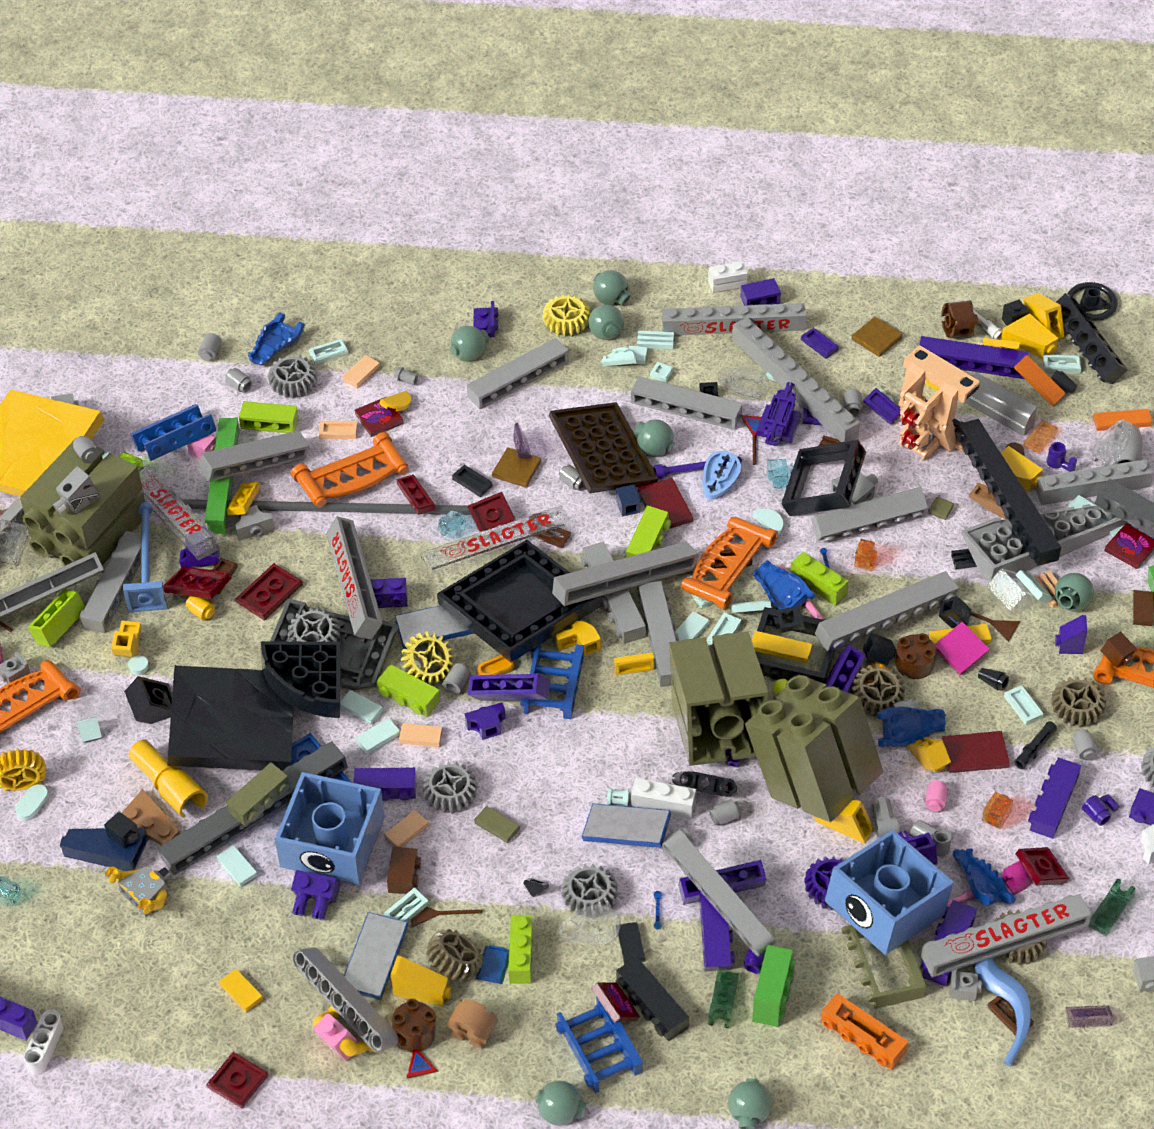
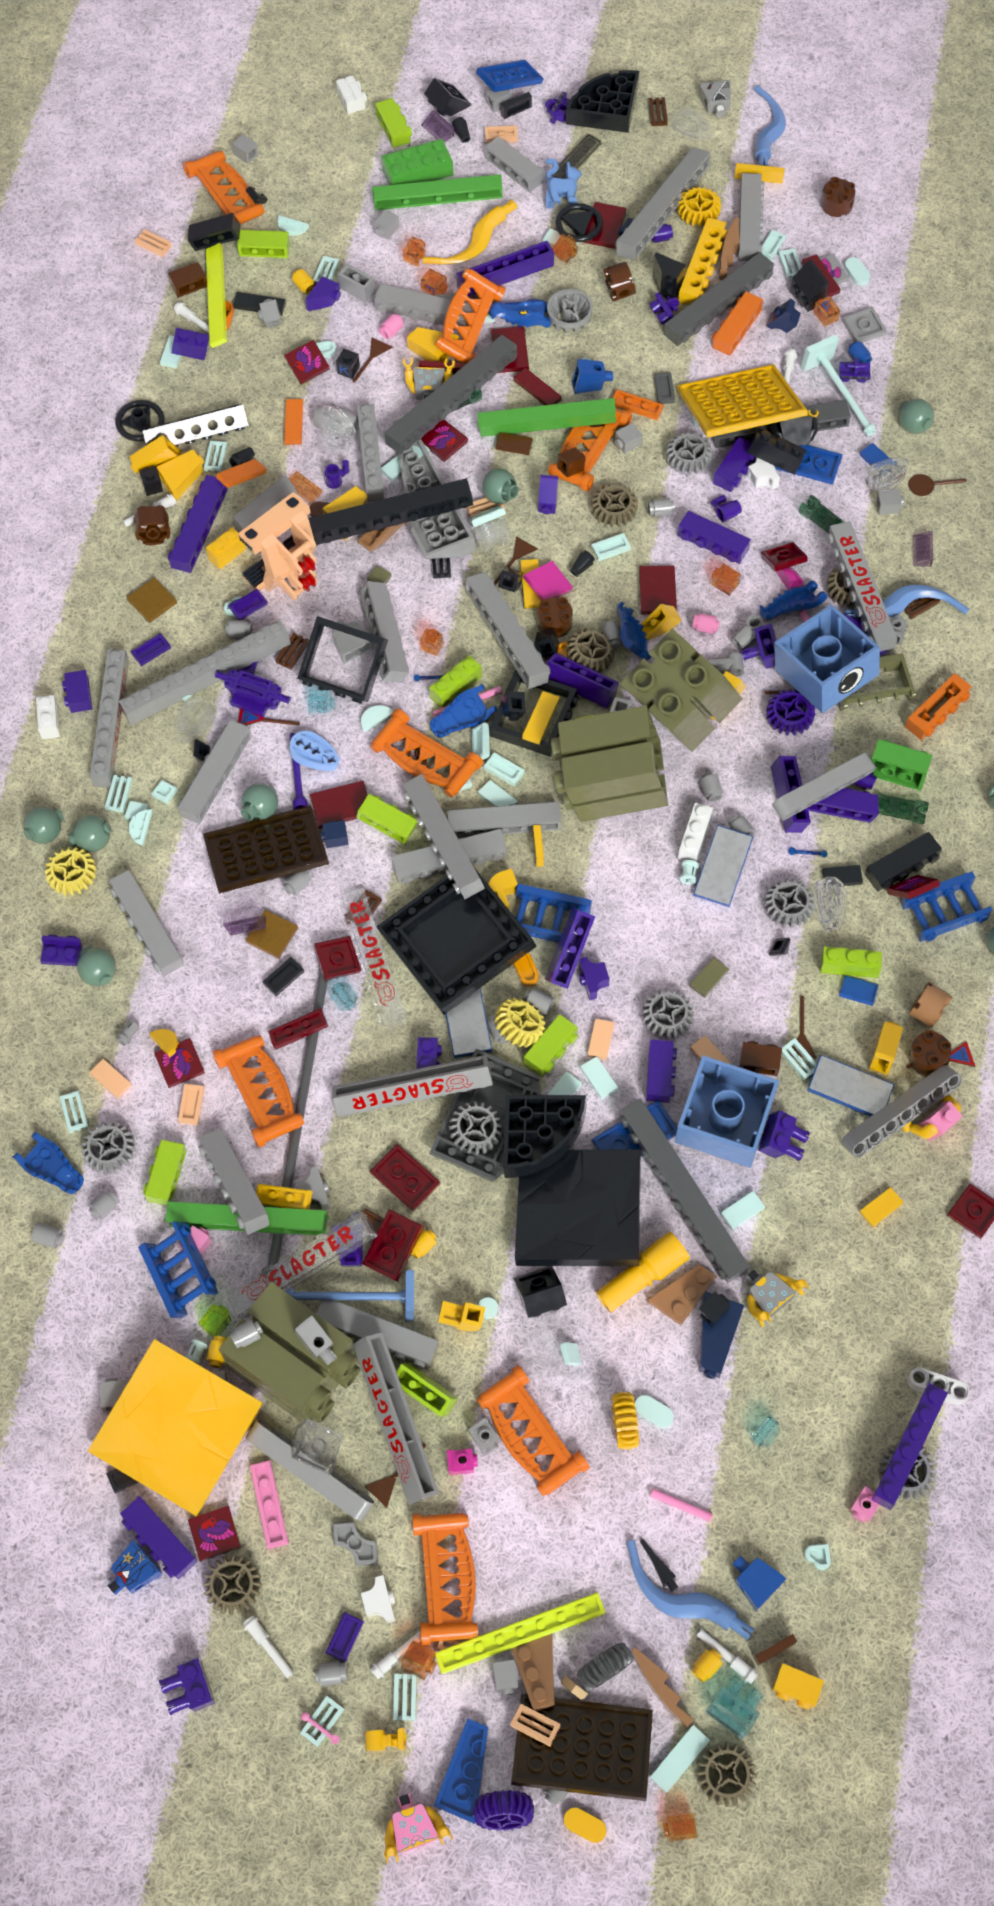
camera: 85 degrees left, 15 degrees up
(258, 794) = (684, 1176): olive brick -> none
(454, 955) = (860, 1014): dark tan gear -> none
(715, 787) = (683, 798): black beam -> none
(1001, 343) = (193, 490): yellow tile -> none
(1031, 750) = (661, 547): black pin -> none

